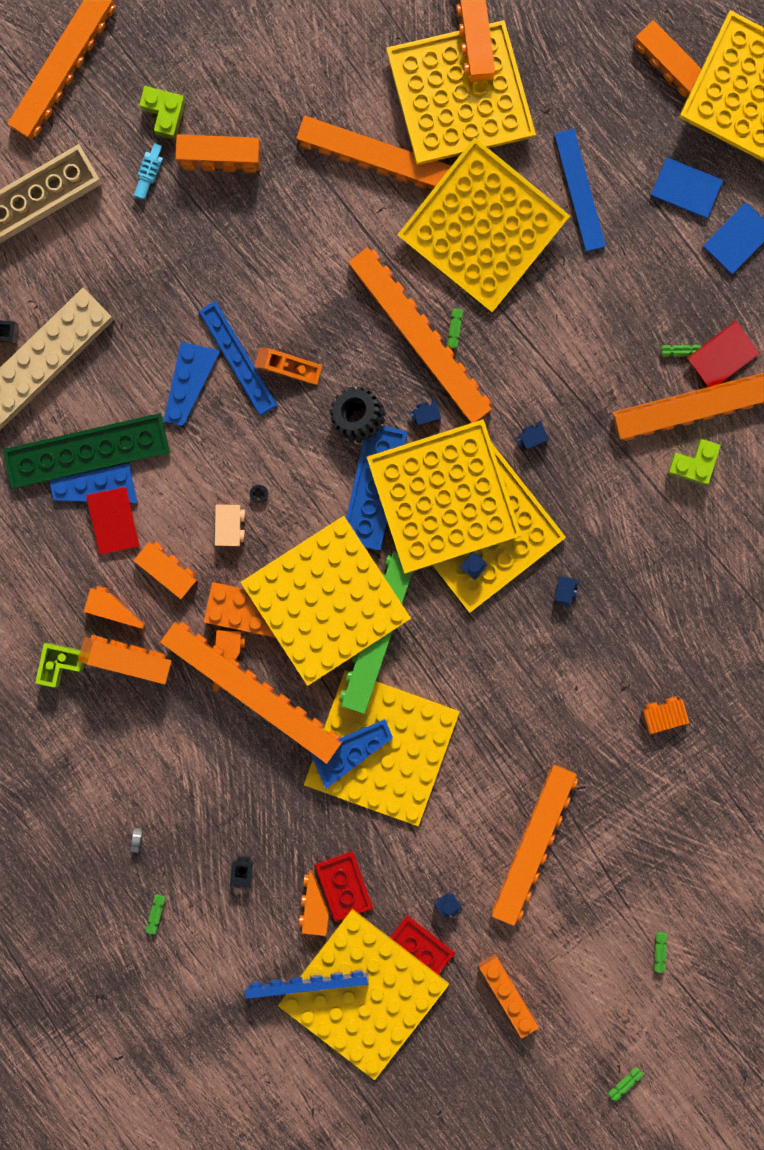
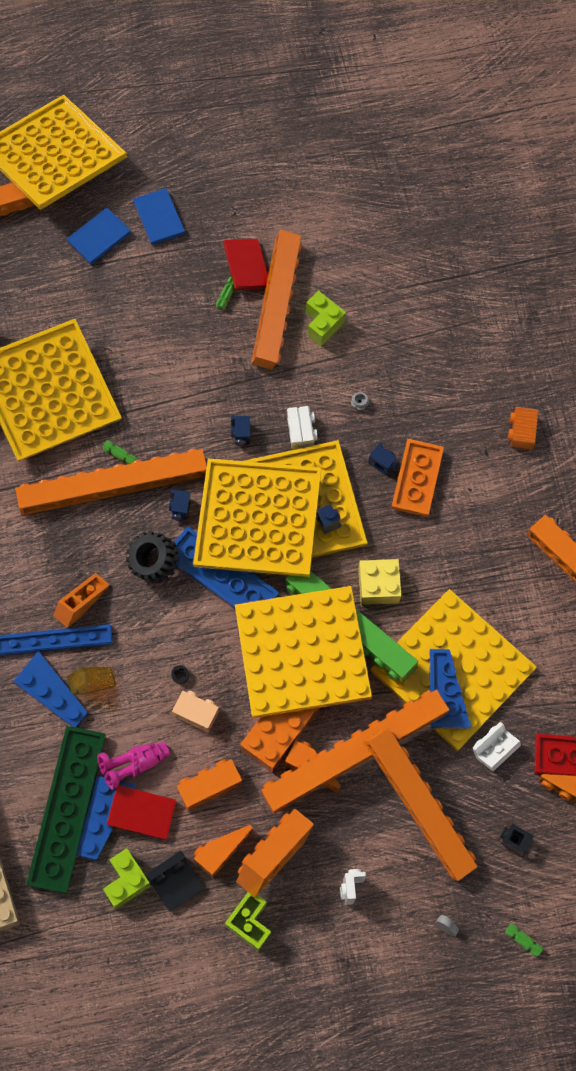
camera: 75 degrees left, 20 degrees down
(47, 540) = (131, 880): none -> lime brick
(65, 580) = (174, 881): none -> black bracket
(125, 738) = (347, 889): none -> white bracket
(160, 497) = (140, 757): none -> dark pink piece
(214, 414) = (90, 680): none -> clear yellow slope
(229, 771) = (421, 804): none -> orange brick
(321, 819) = (496, 747): none -> white bracket
(434, 641) = (379, 581): none -> light yellow brick
(562, 632) = (417, 477): none -> orange plate
(563, 494) = (300, 427): none -> white brick
(579, 190) = (57, 312): blue tile -> none
(621, 534) = (360, 396): none -> light grey plate

